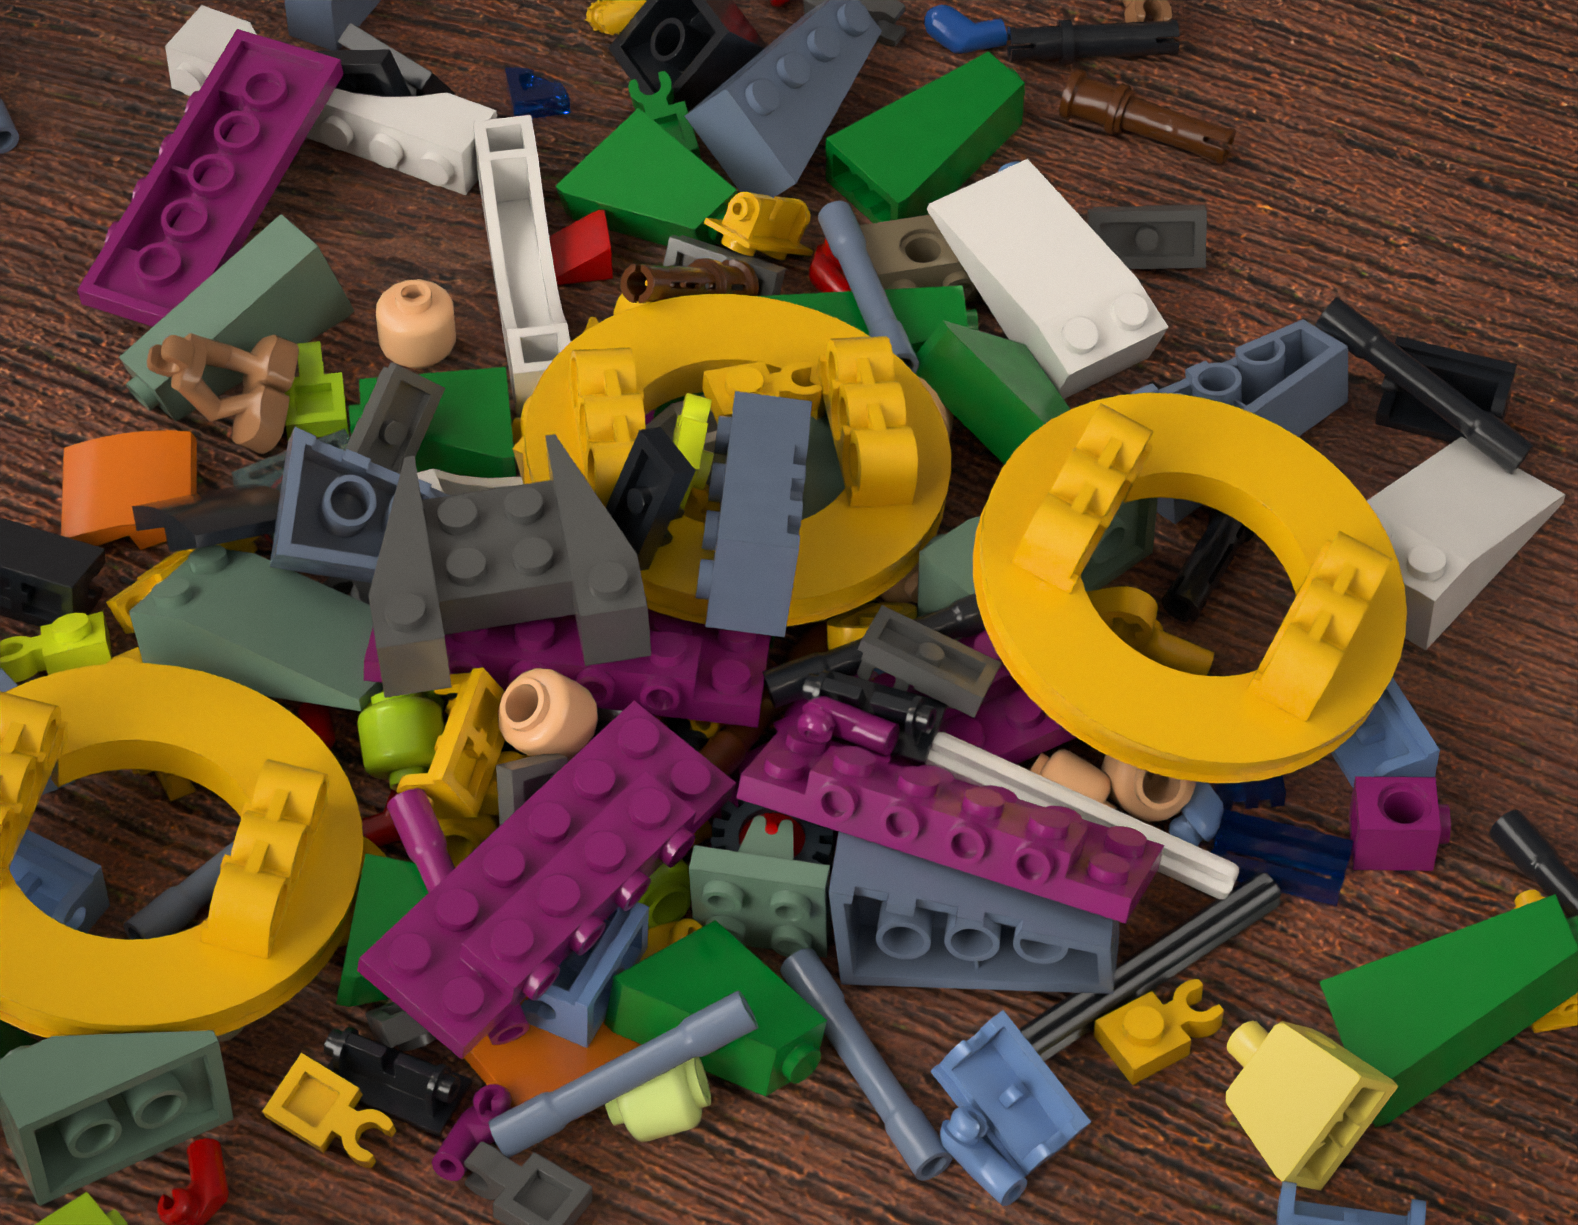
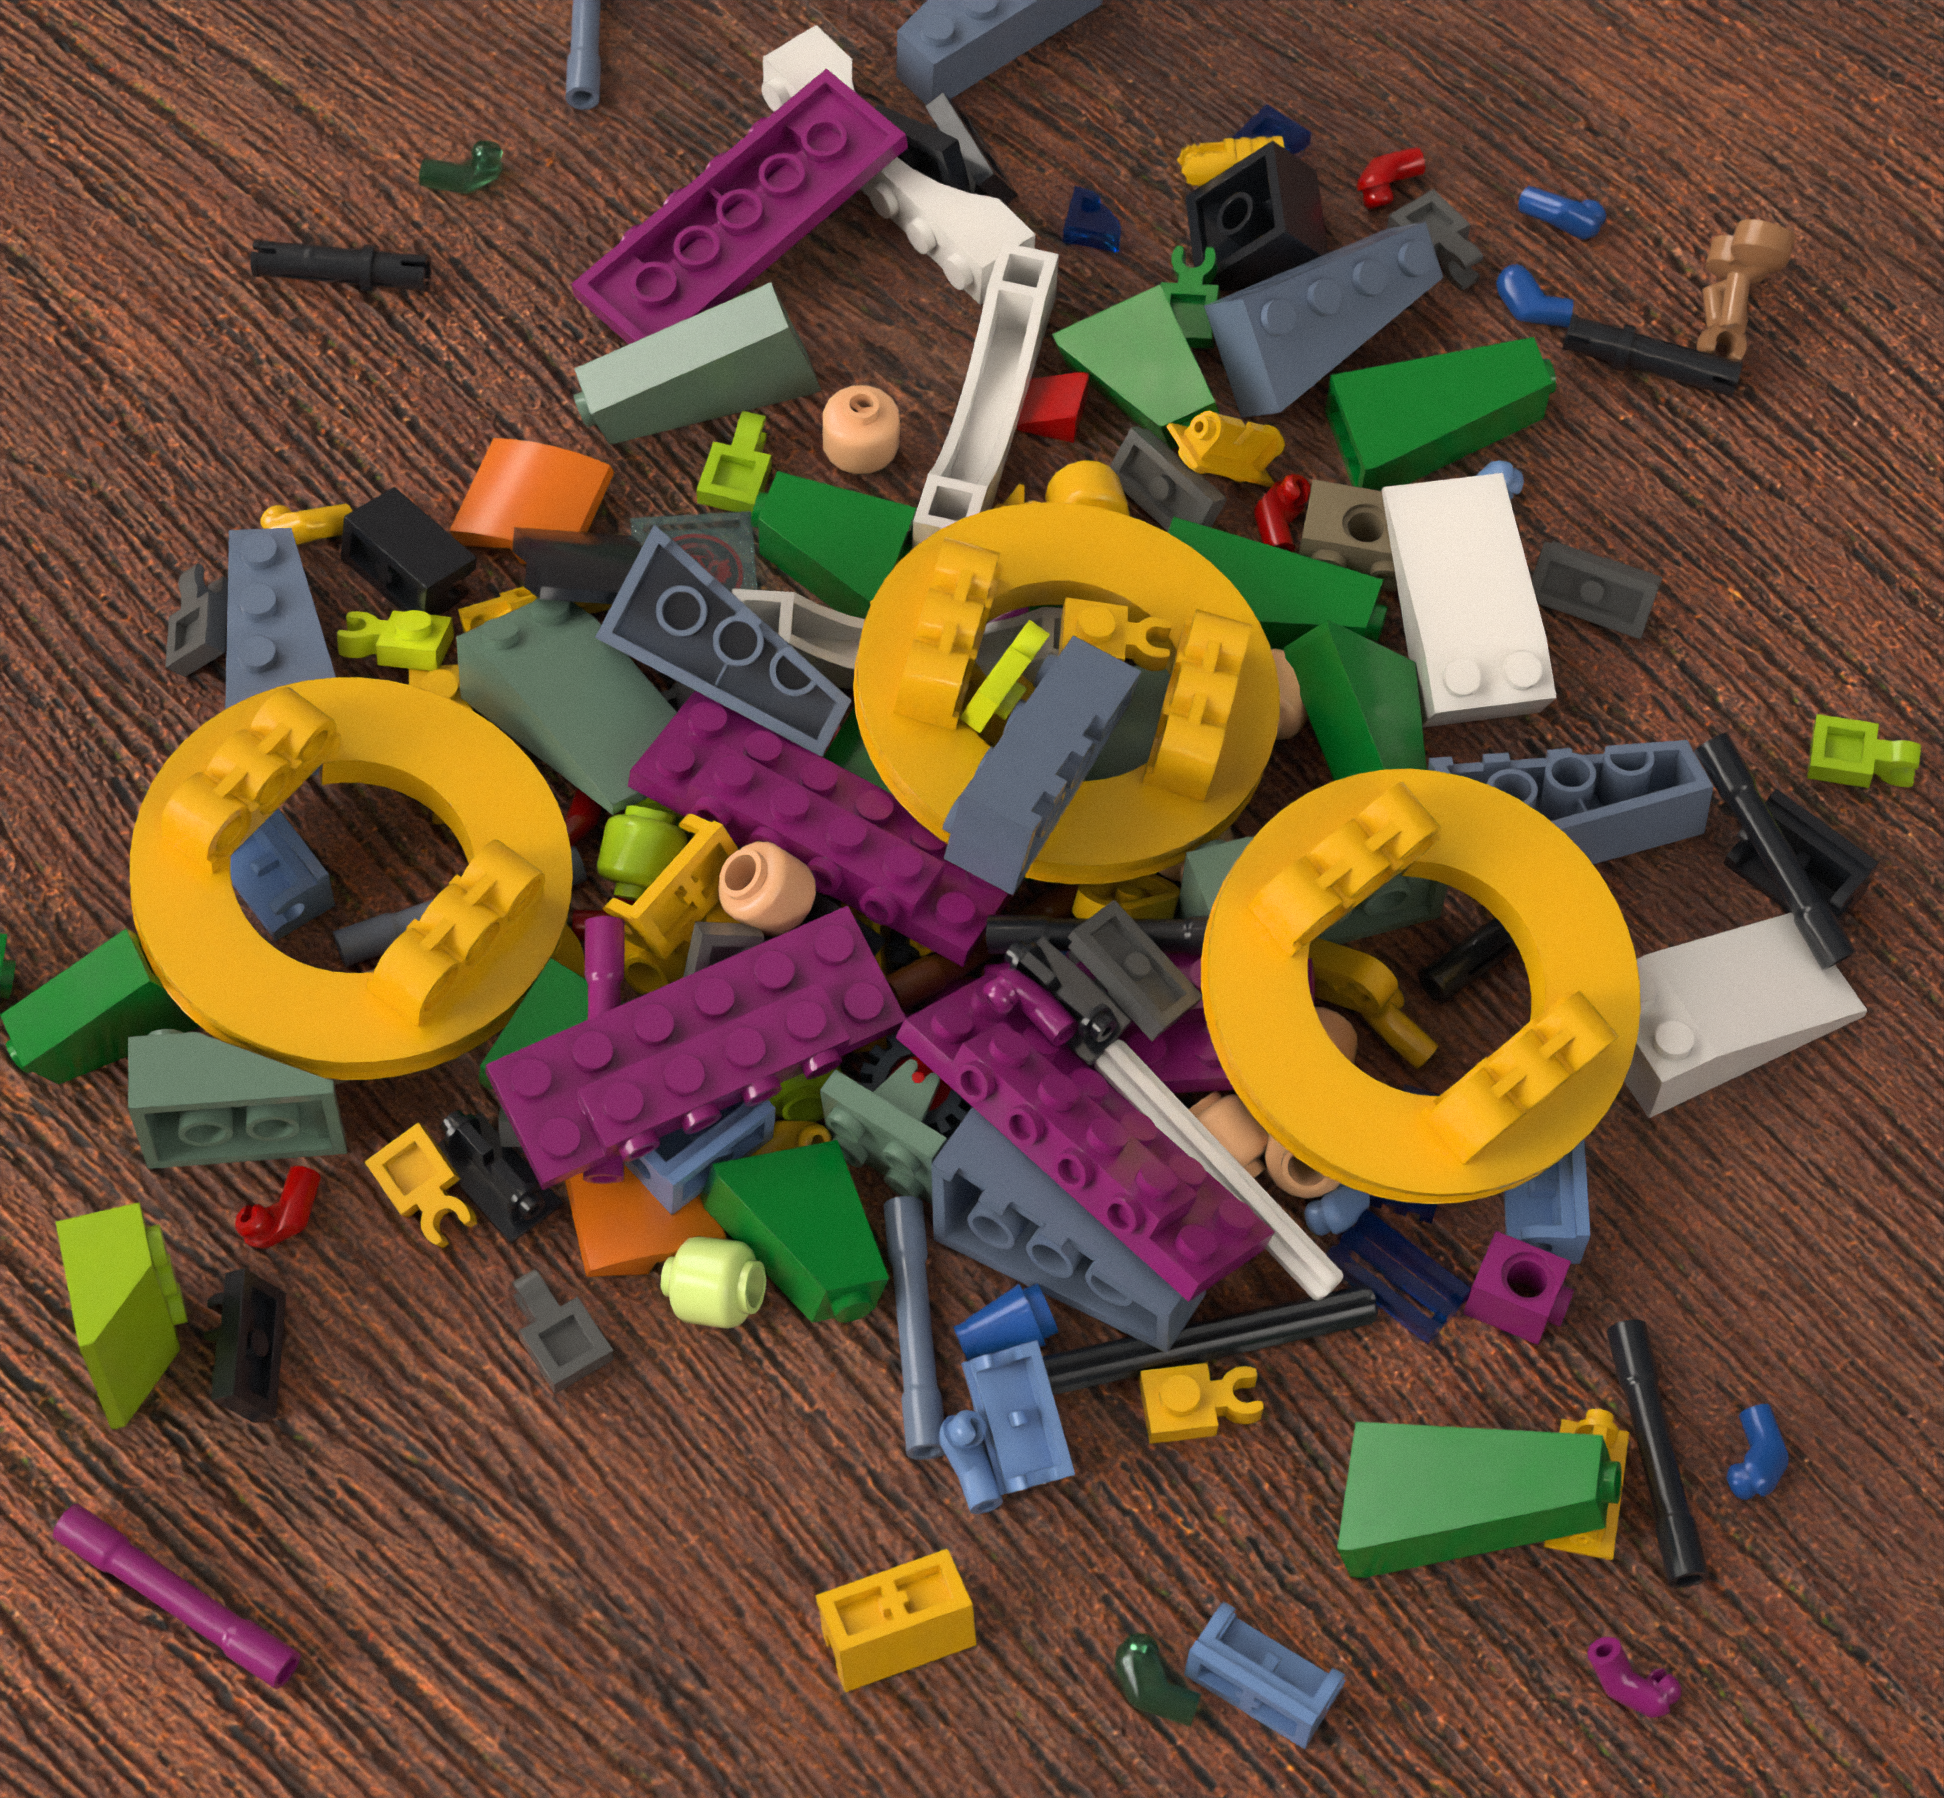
camera: 20 degrees right, 10 degrees up
(266, 377) = (699, 433): medium nougat piece -> none
(395, 417) = (773, 538): dark grey plate -> none
(470, 1130) = (543, 1251): magenta arm -> none
(502, 563) = (770, 725): dark grey wedge -> none
(650, 493) = (935, 718): black plate -> none
(677, 281) = (1131, 492): reddish brown pin -> none
(692, 1038) = (749, 1255): sand blue piece -> none
(849, 247) = (1290, 502): sand blue piece -> none
(952, 1018) = (1007, 1322): none -> blue cone
(1121, 110) = (1641, 441): reddish brown pin -> none
(1302, 1099) = (1281, 1530): light yellow torso -> none
(1440, 295) = (1850, 753): none -> lime plate

